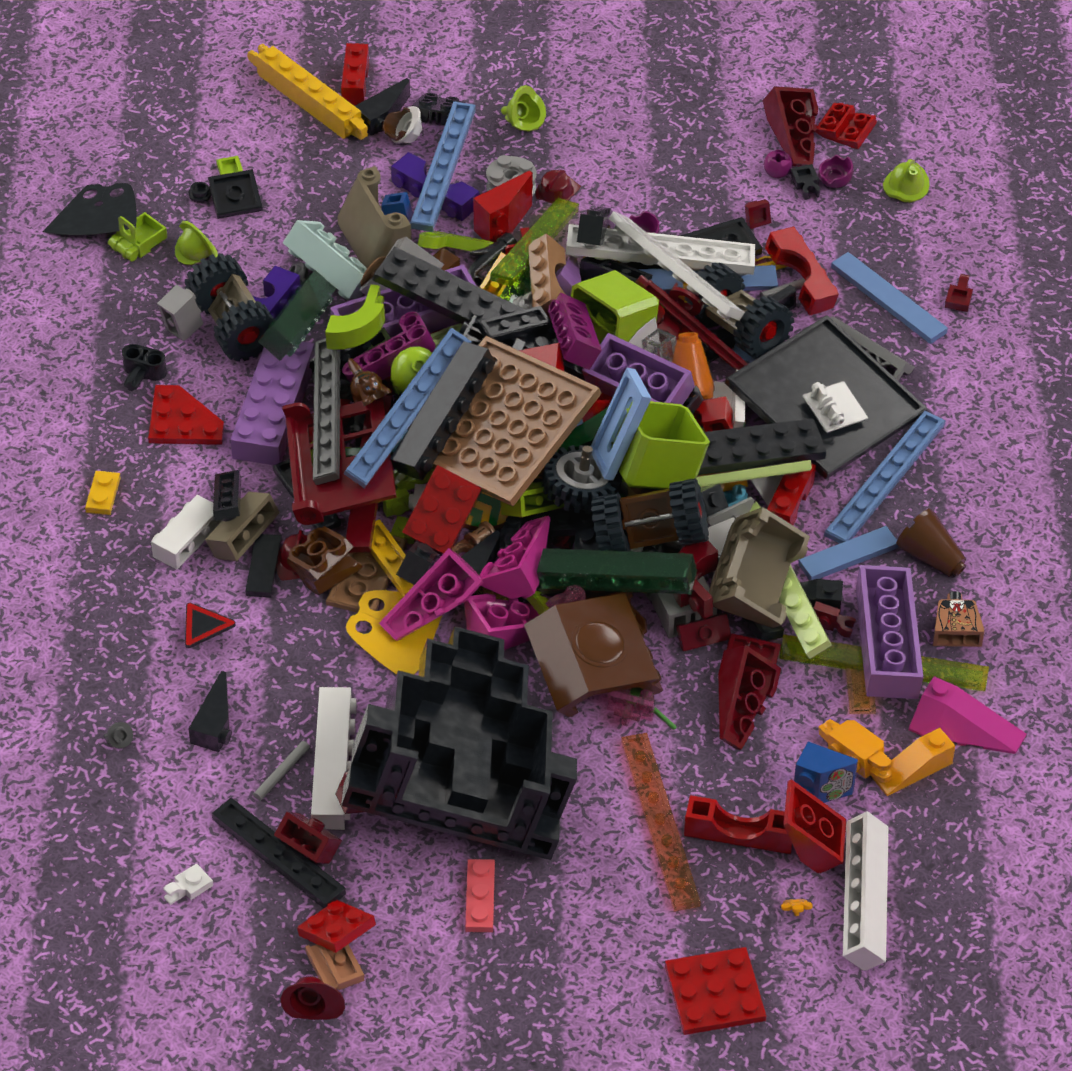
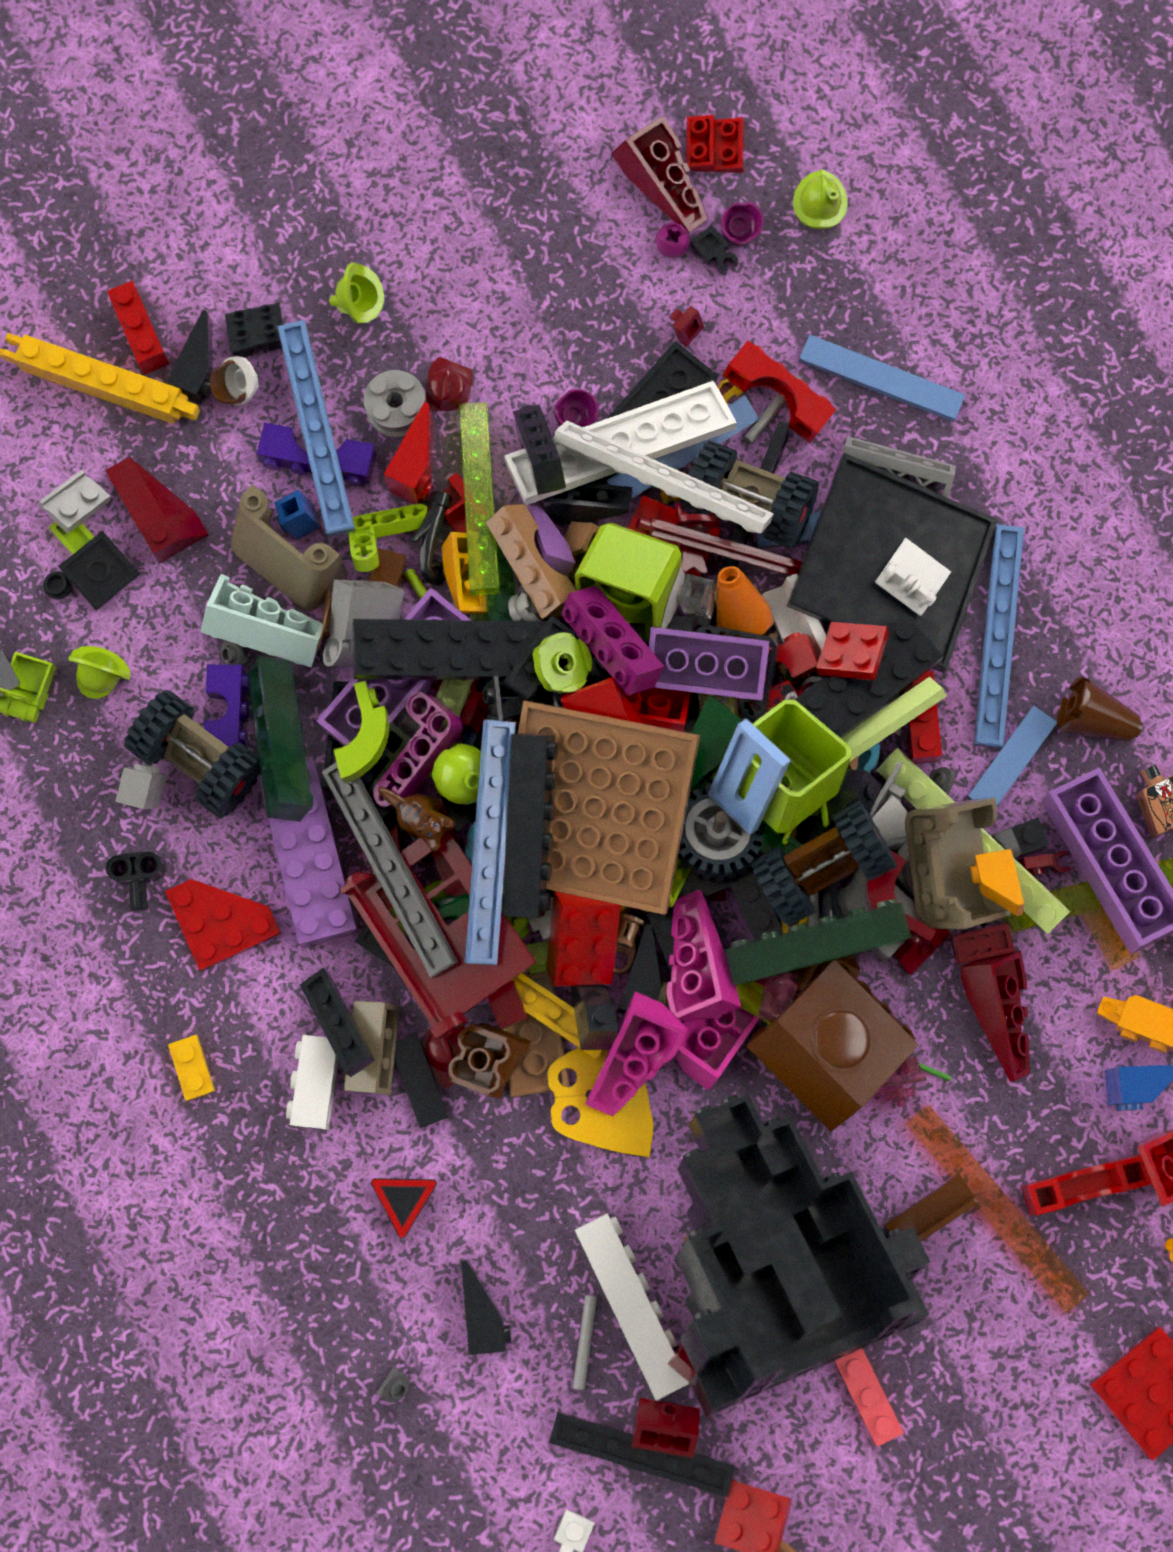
camera: 25 degrees left, 30 degrees up
(244, 151) = (74, 501): none -> light grey plate
(298, 180) = (158, 513): none -> dark red wedge
(520, 318) = (547, 667): none -> lime plate
(606, 798) = (936, 1209): none -> reddish brown panel
(756, 418) = (852, 650): none -> plate
(783, 589) = (998, 880): none -> light orange slope
(960, 295) = (955, 342): dark red plate -> none

